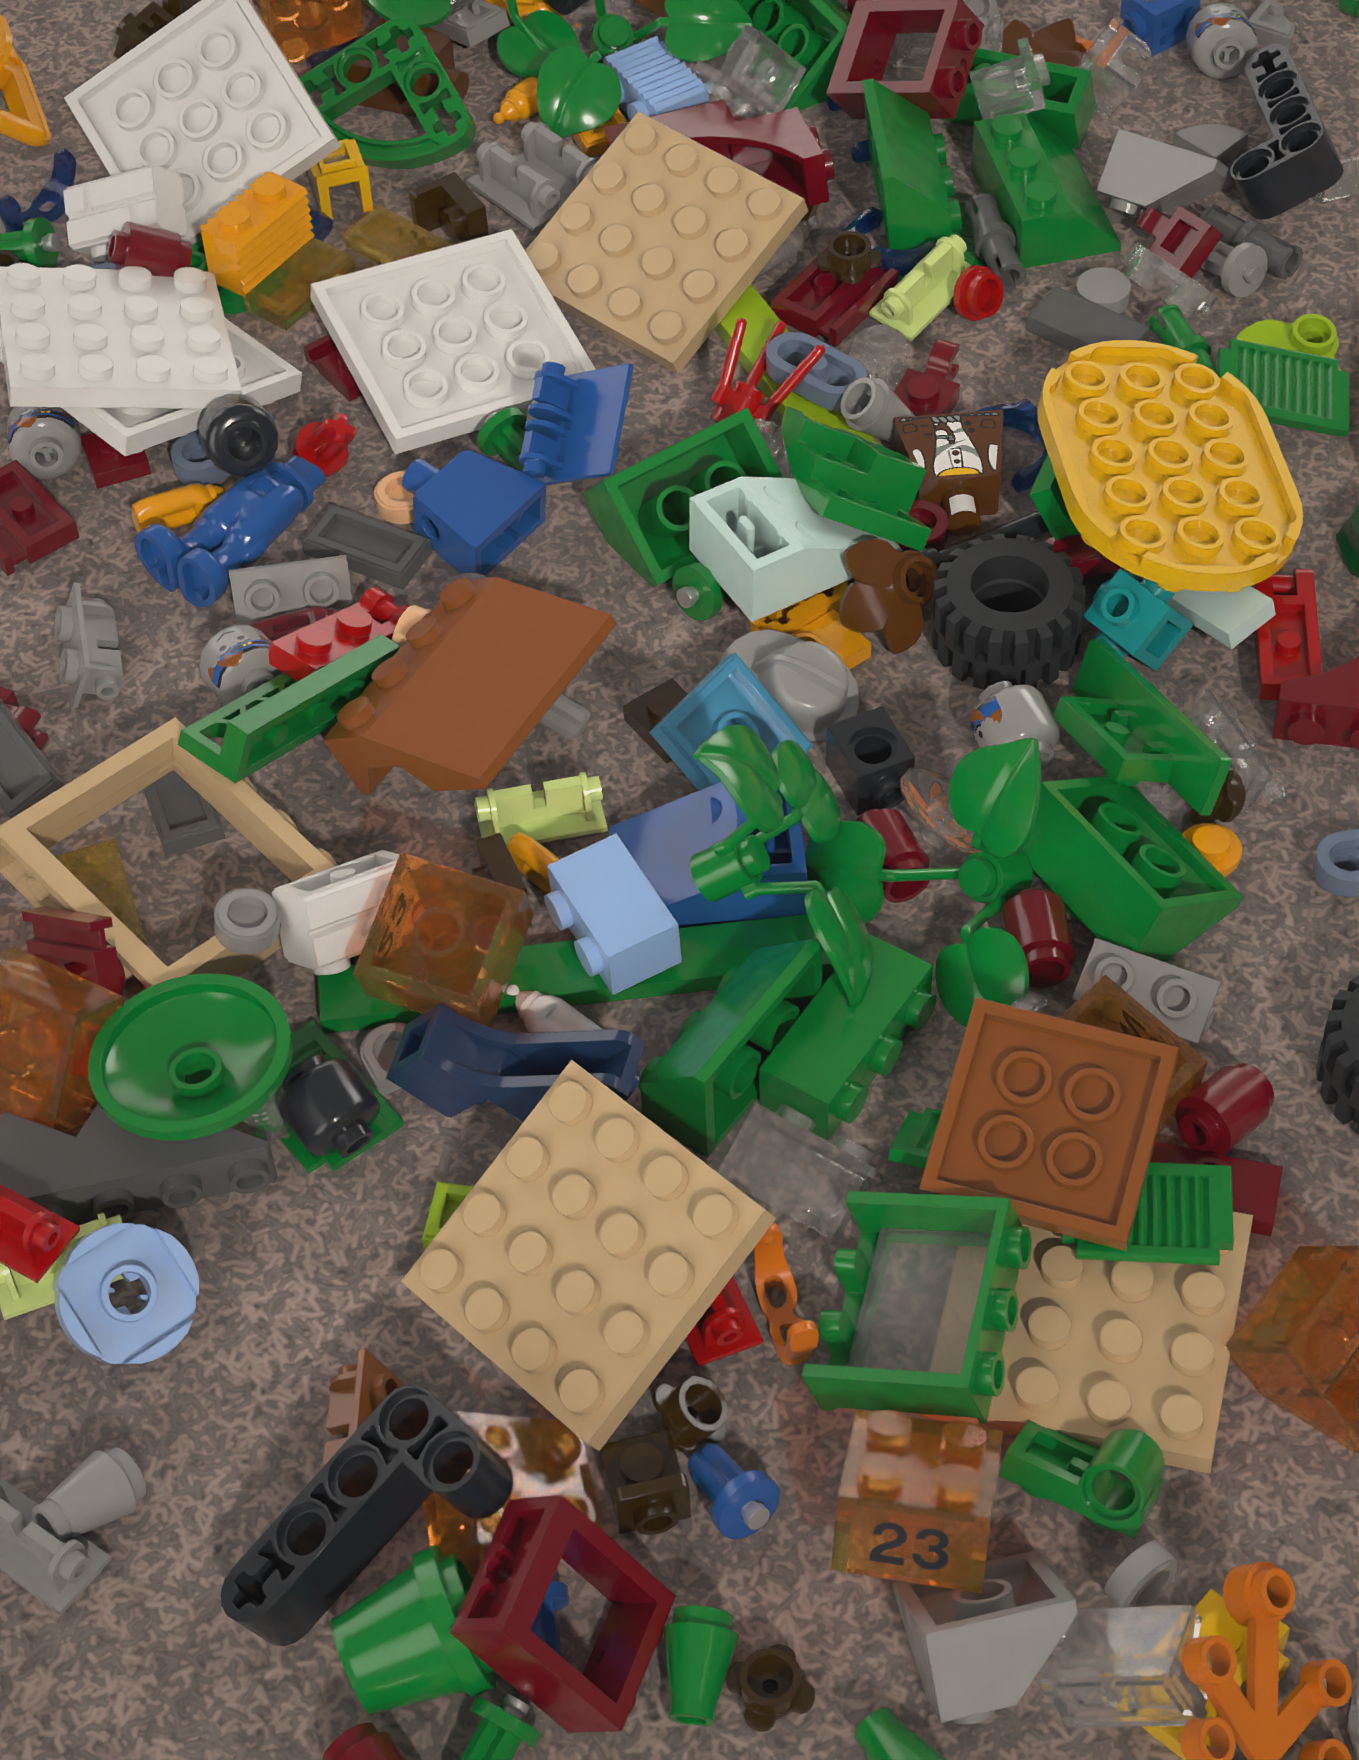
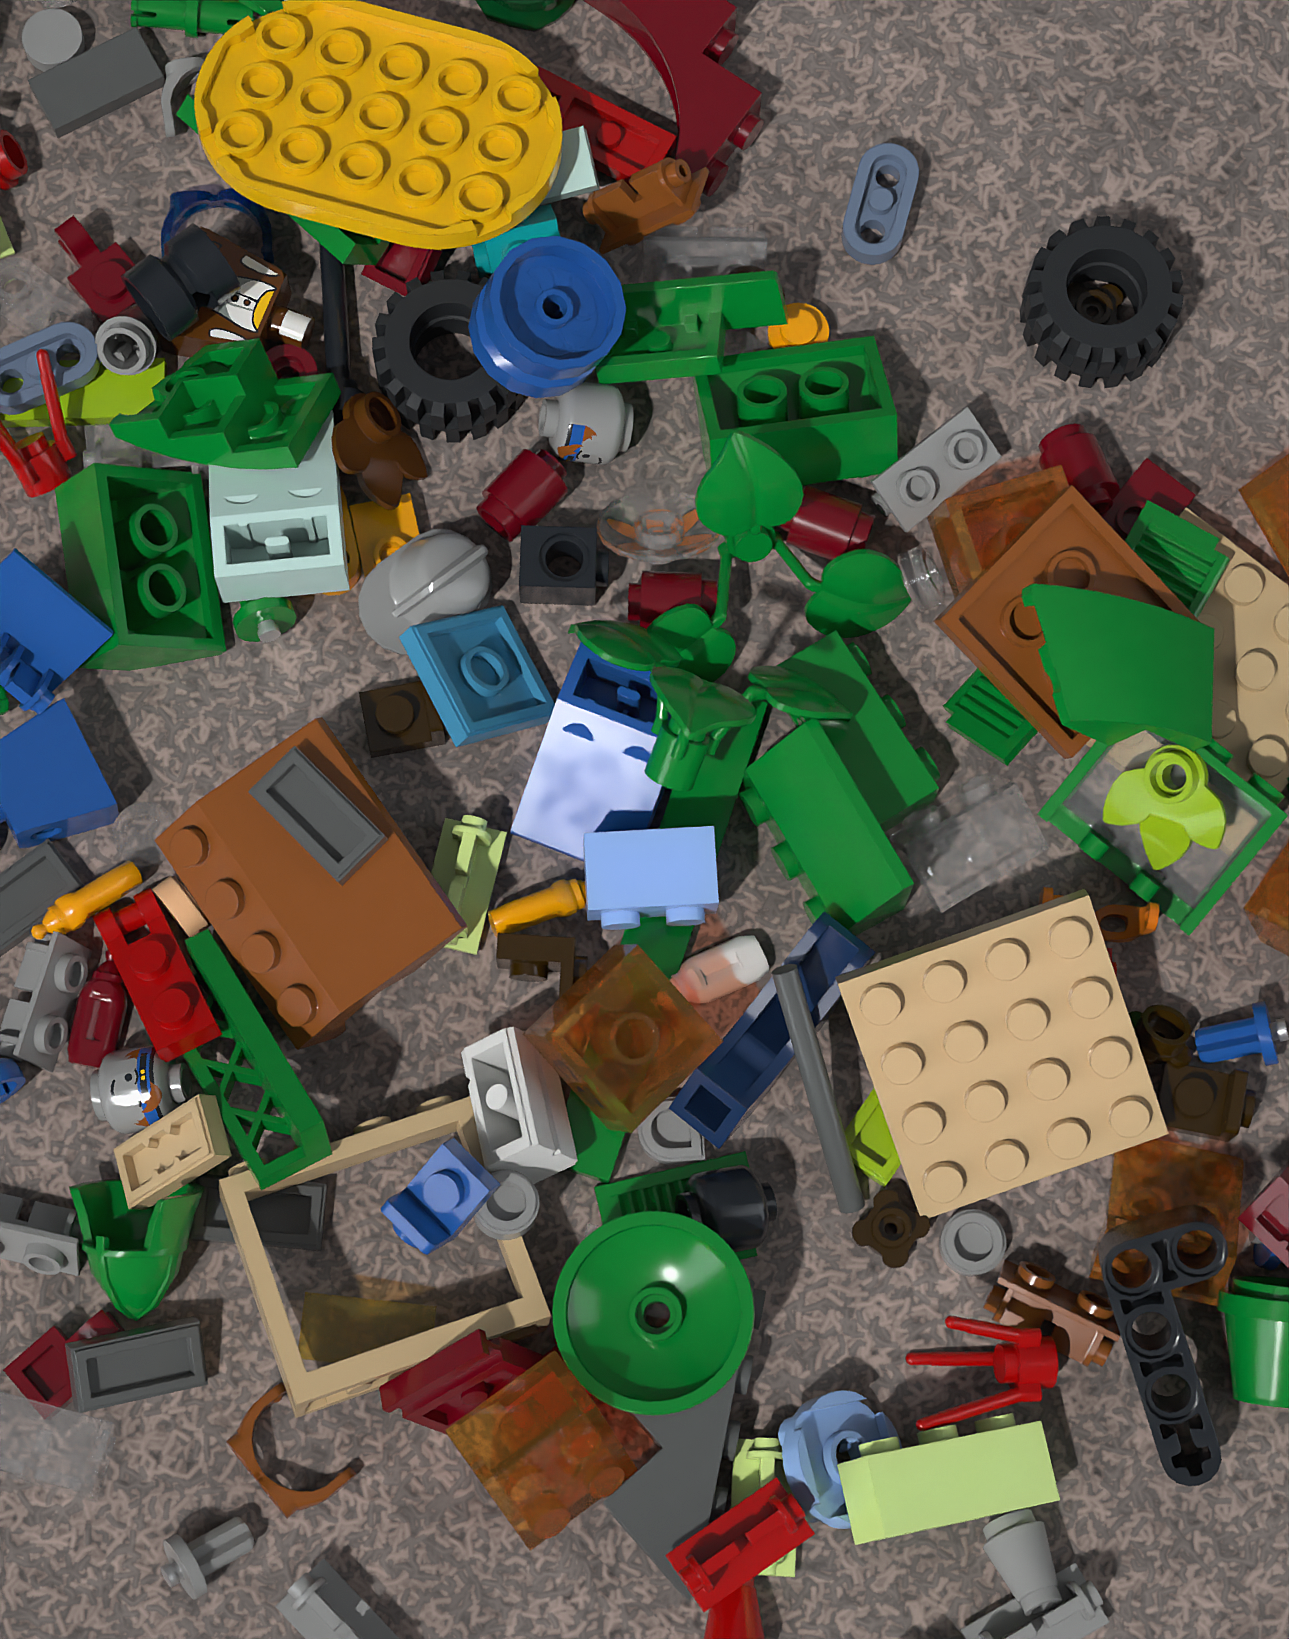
camera: 70 degrees left, 25 degrees up
(104, 712) = (134, 1250): none -> green helmet
(138, 1377) = (947, 1478): none -> yellowish green brick
(193, 696) = (172, 1152): none -> tan plate
(218, 861) = (440, 1198): none -> blue bracket
(291, 1410) = (1024, 1362): none -> red plant
(377, 570) = (75, 908): none -> light orange piece
(381, 1277) = (872, 1232): none -> dark brown plate
(402, 1338) = (972, 1243): none -> light grey tile
(476, 1121) = (818, 1088): none -> dark grey bar
(524, 645) = (318, 815): none -> dark grey tile
(923, 712) = (523, 493): none -> dark red brick
(927, 1290) = (1167, 813): none -> lime plate
(928, 394) = (181, 282): none -> black wheel
(1027, 1166) = (1125, 666): none -> green slope
(1066, 614) = (547, 317): none -> blue wheel
(1241, 671) = (665, 197): none -> dark orange hinge

